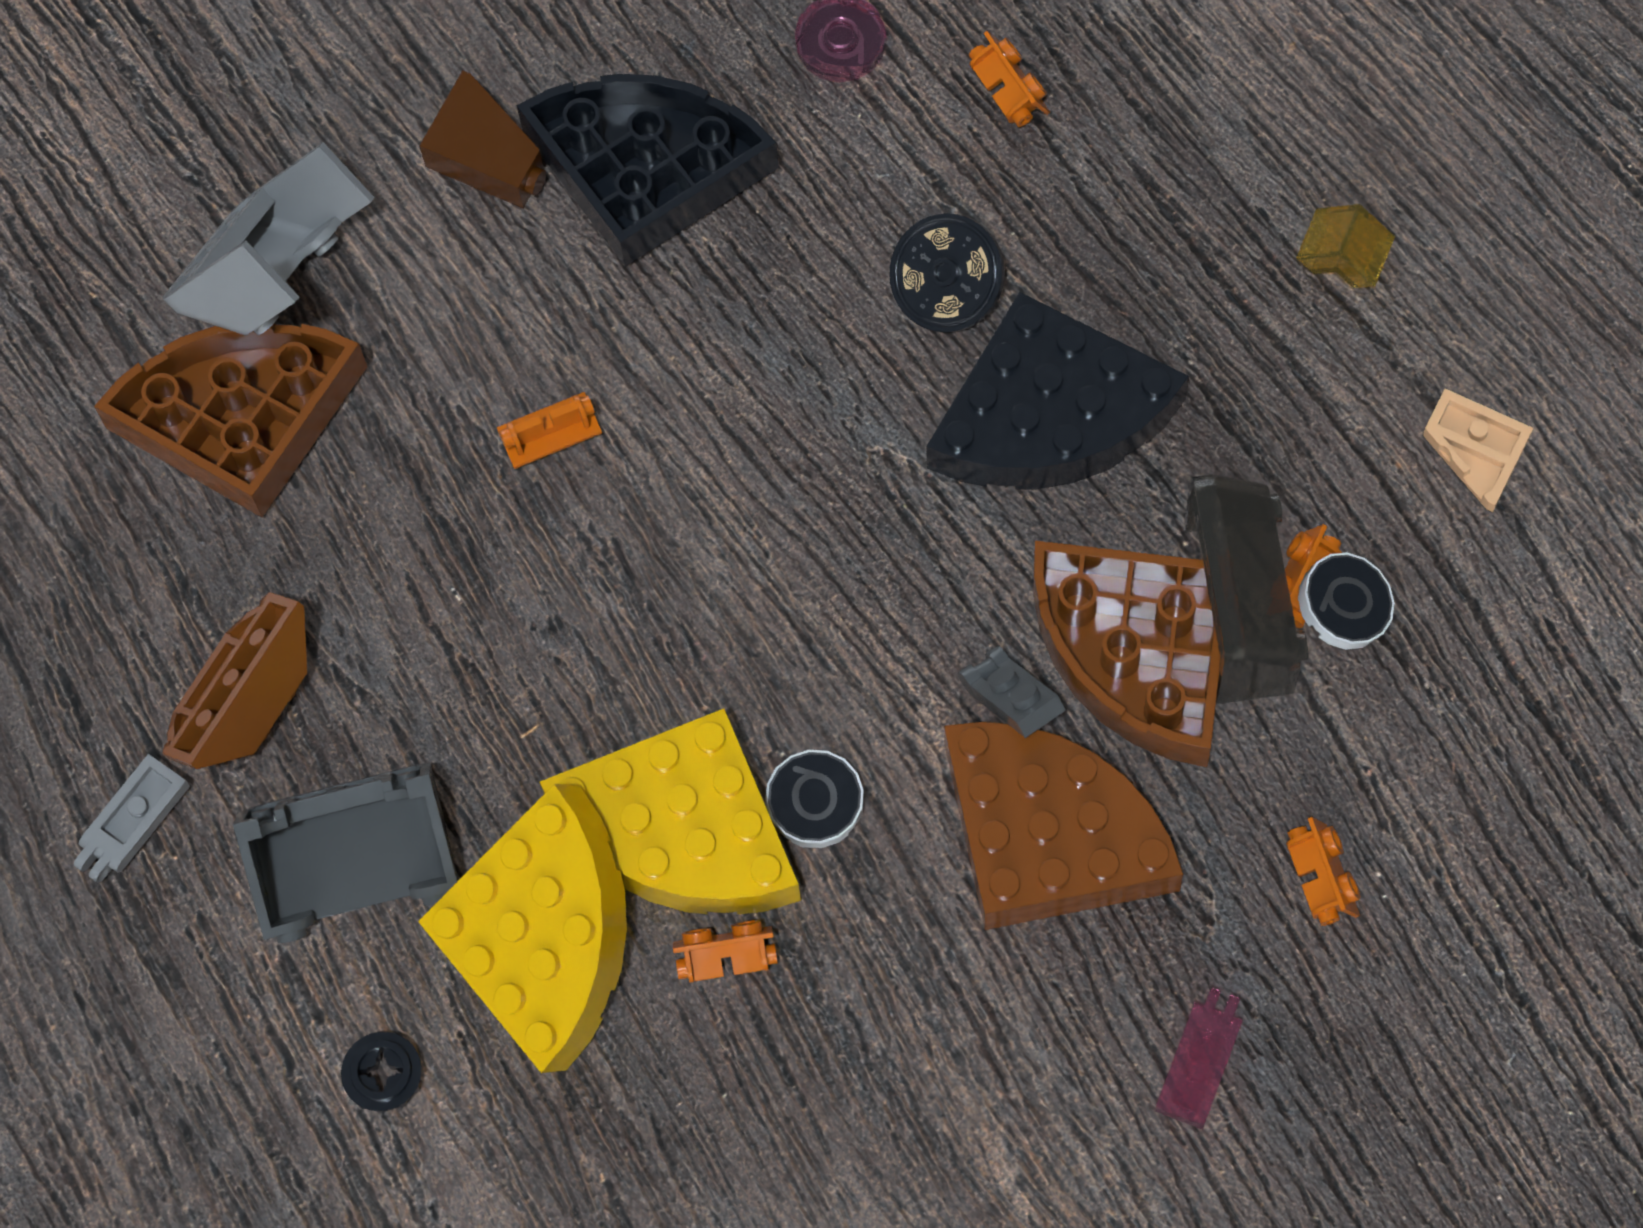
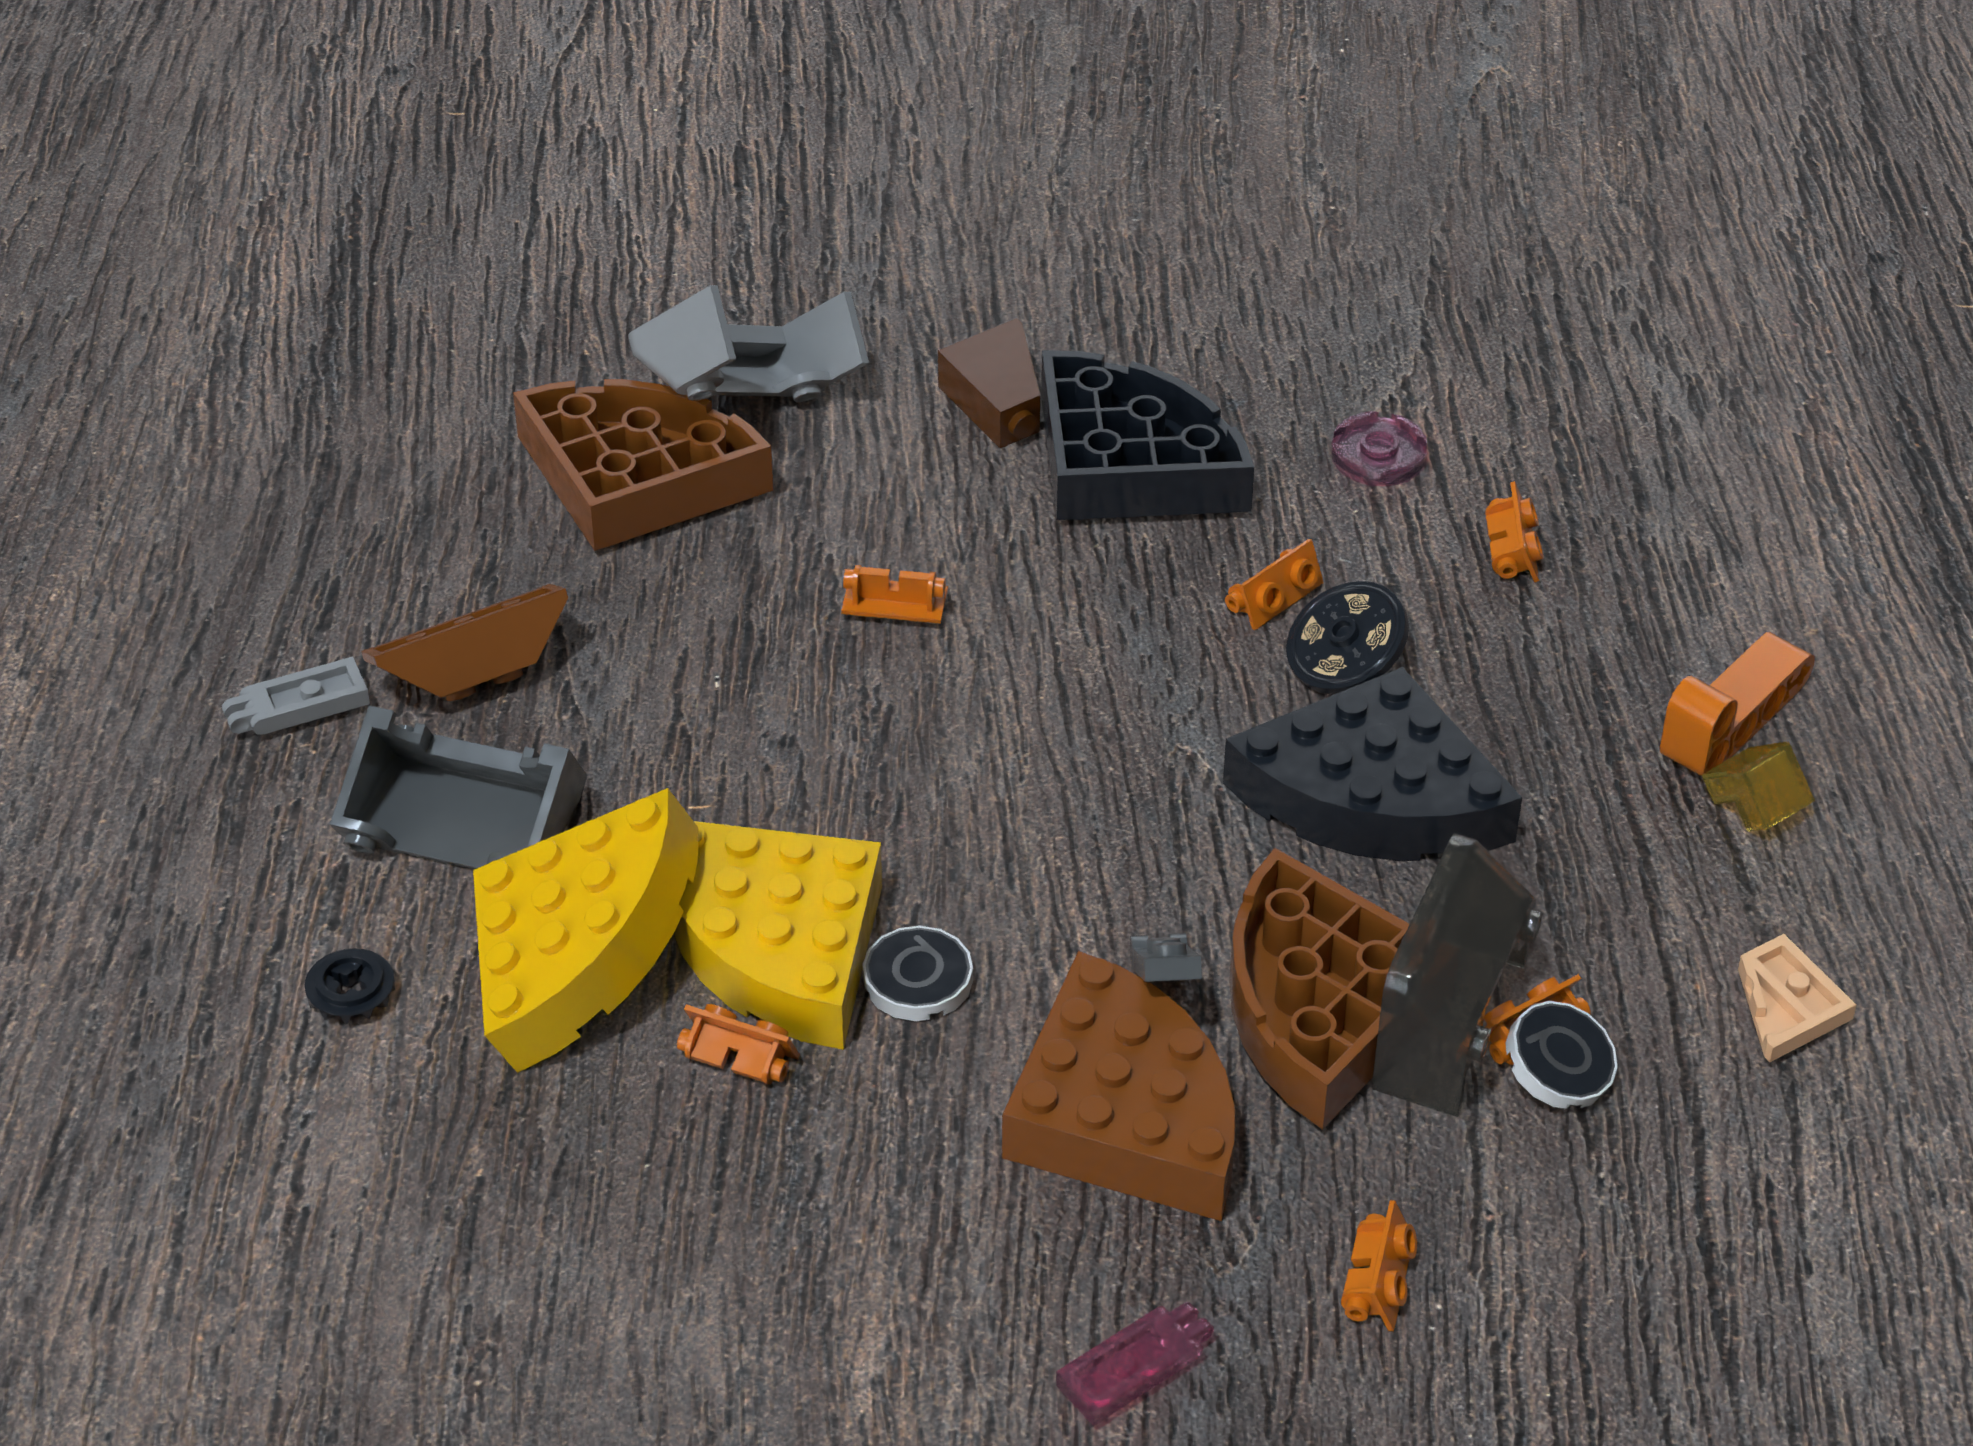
camera: 25 degrees right, 25 degrees down
(855, 222) = (1277, 585): none -> orange hinge
(1284, 168) = (1716, 720): none -> orange beam

